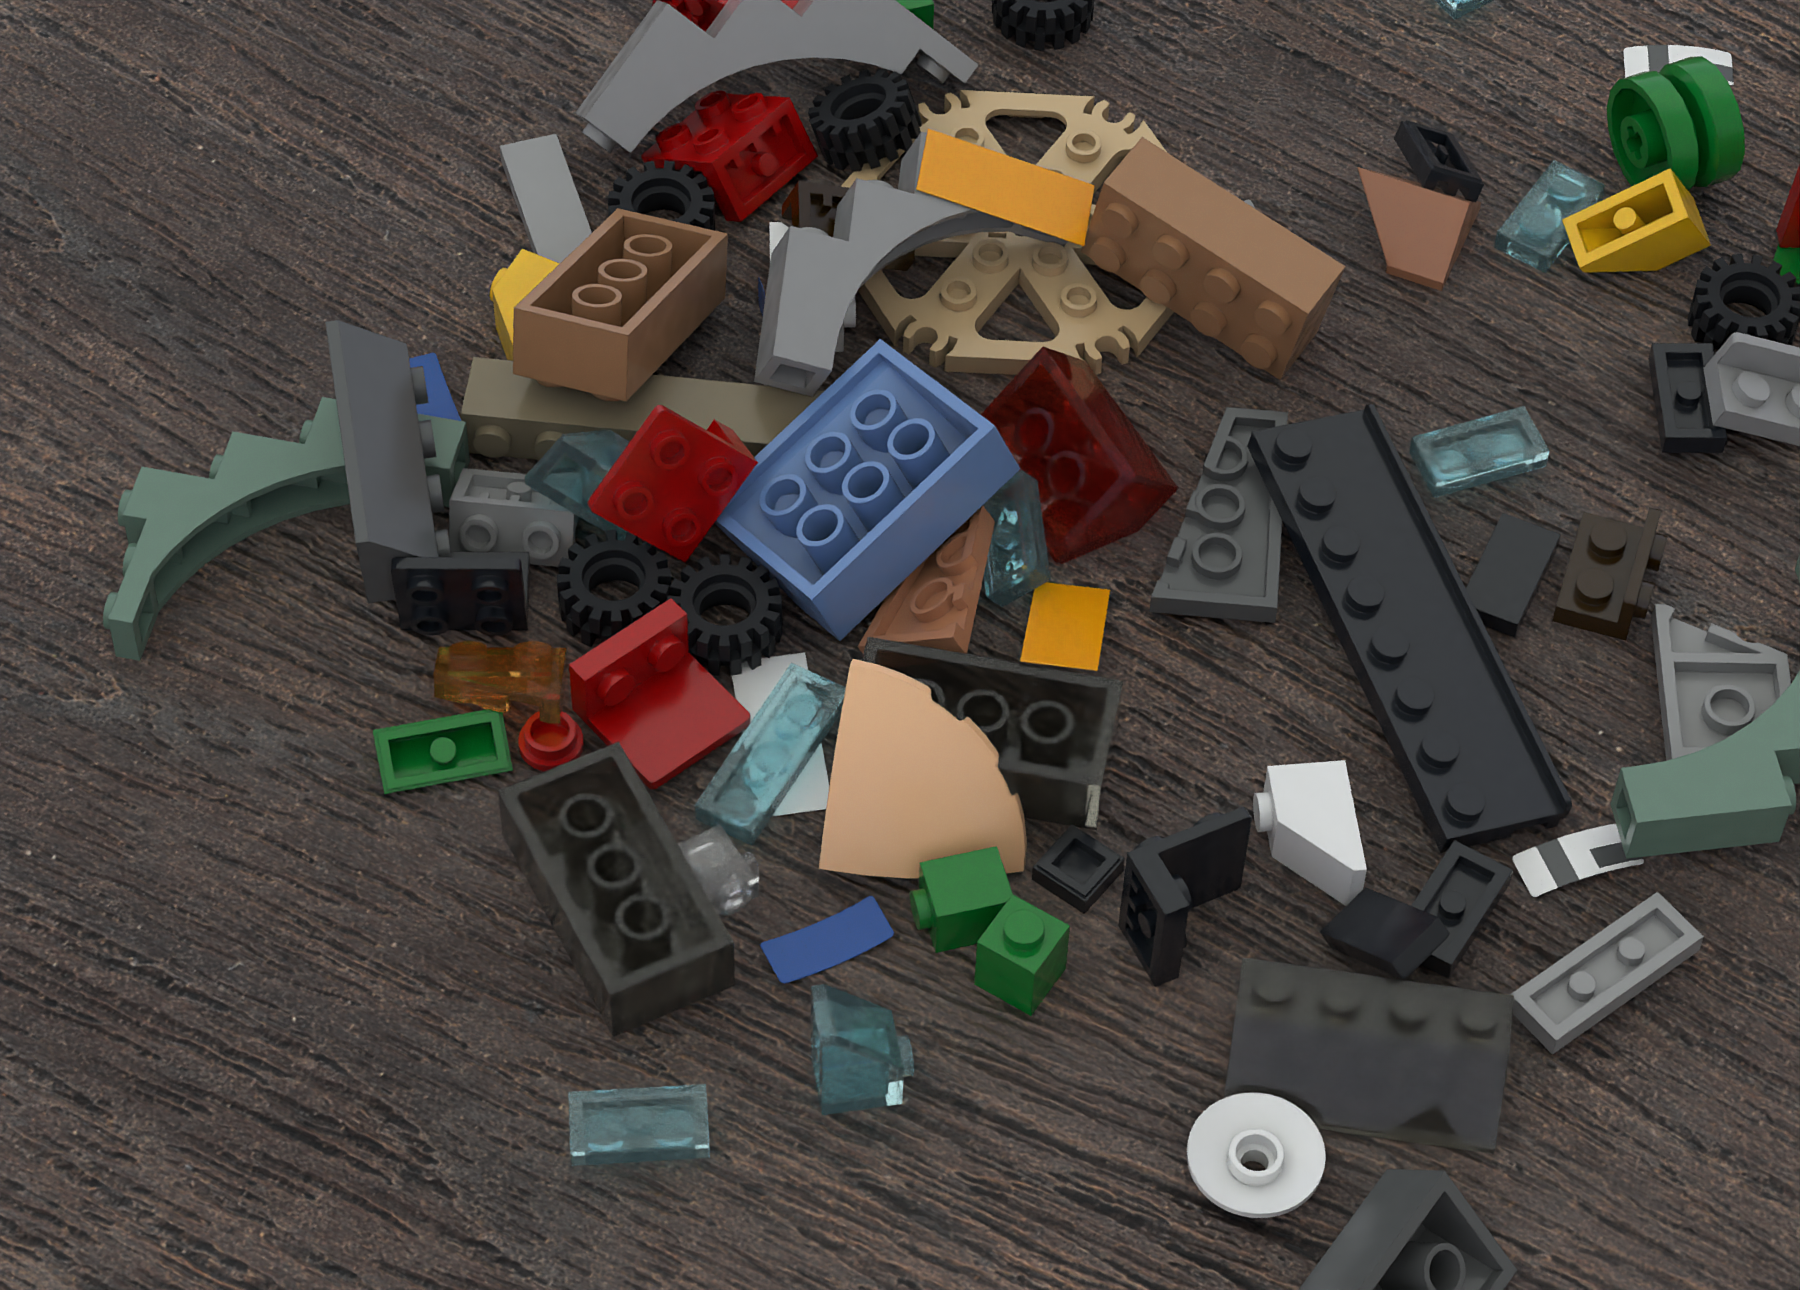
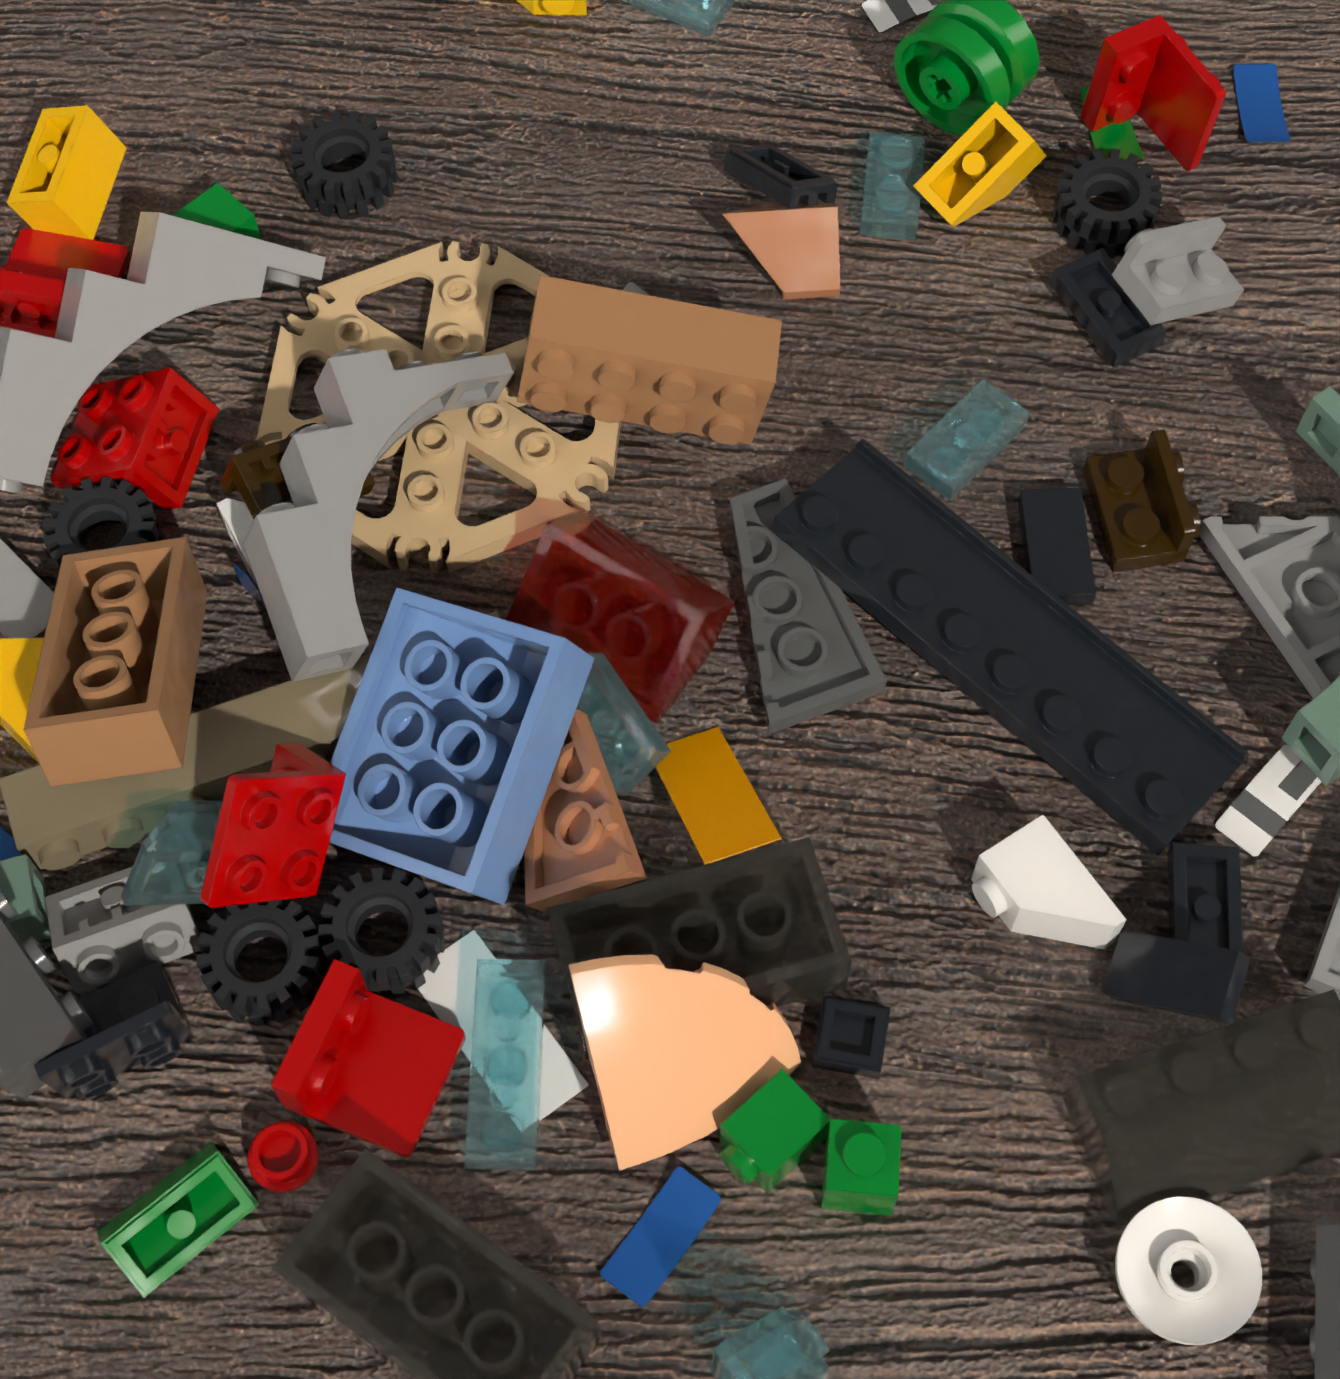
camera: 25 degrees left, 10 degrees up
(497, 675) = (203, 1114): clear orange wing -> none
(723, 872) = (519, 1220): clear bracket -> none
(865, 120) = (232, 340): black tyre -> none
(1005, 187) = (428, 377): light orange sticker -> none
(1173, 876) = (964, 1062): black bracket -> none

